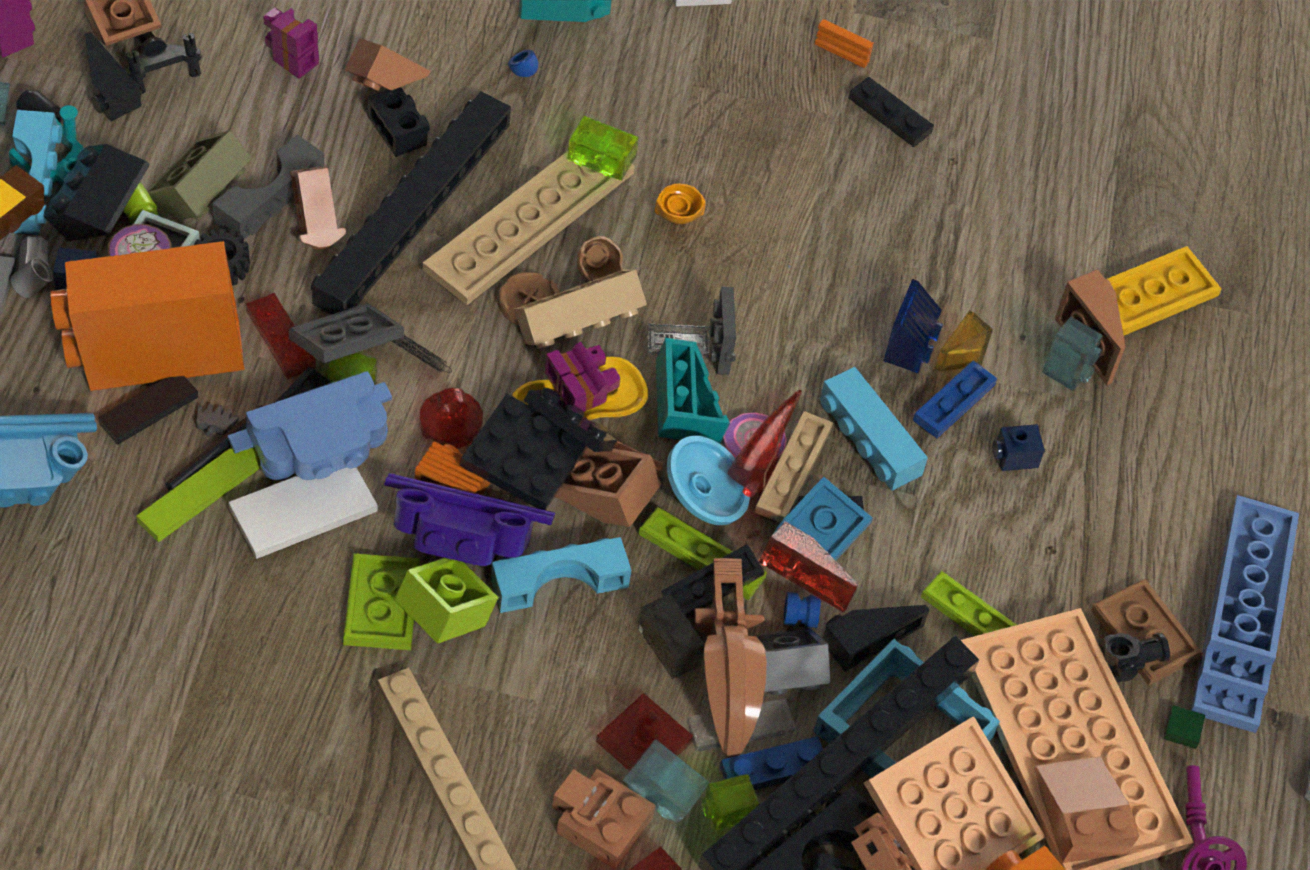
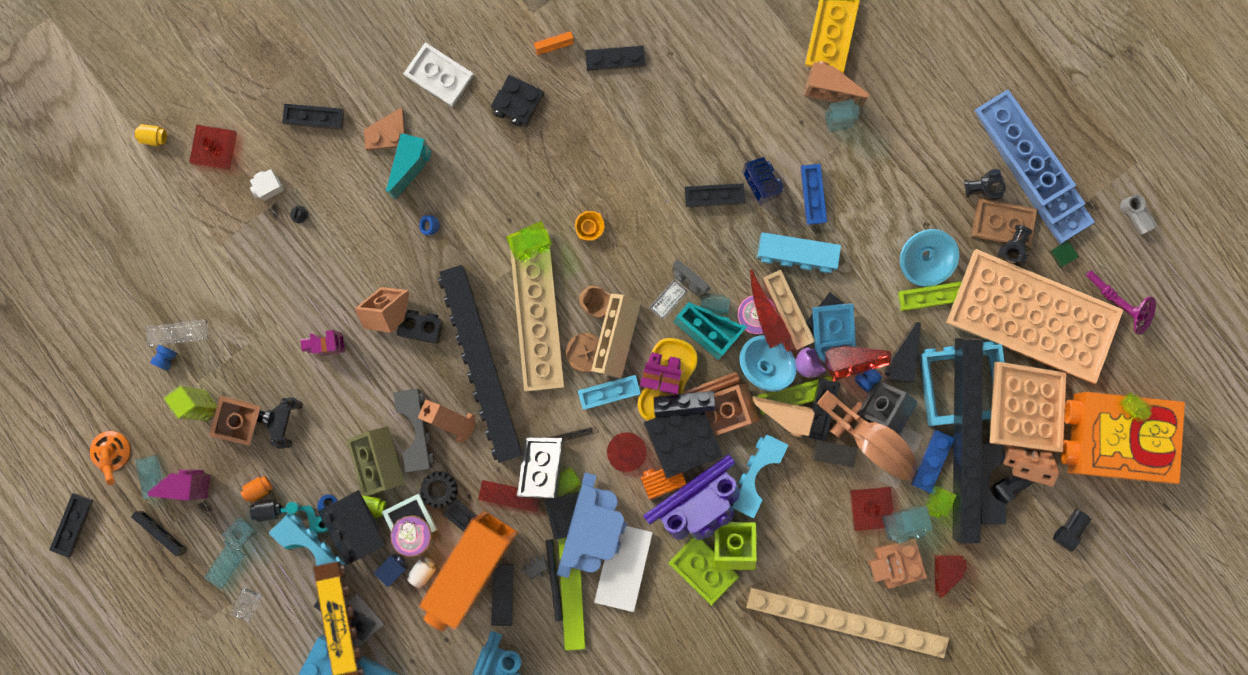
camera: 40 degrees left, 30 degrees up
(33, 267) = (376, 593): light grey piece -> none
(58, 87) = (256, 489): none -> orange brick
(112, 86) = (273, 460): black slope -> none
(504, 349) = (609, 392): none -> medium azure plate
(667, 550) = (792, 417): none -> light nougat slope
(726, 385) = (716, 303): none -> clear light blue brick
(744, 53) = (516, 101): none -> black plate
(753, 526) = (808, 363): none -> medium lavender hair
(846, 301) = (714, 195): none -> black plate
(965, 344) = (788, 159): clear yellow slope -> none
(1010, 541) = (936, 264): none -> medium azure dish
(1019, 447) = (865, 190): dark blue brick -> none
(1086, 810) = (1075, 347): nougat slope -> none
(1164, 569) = (985, 185): none -> black connector

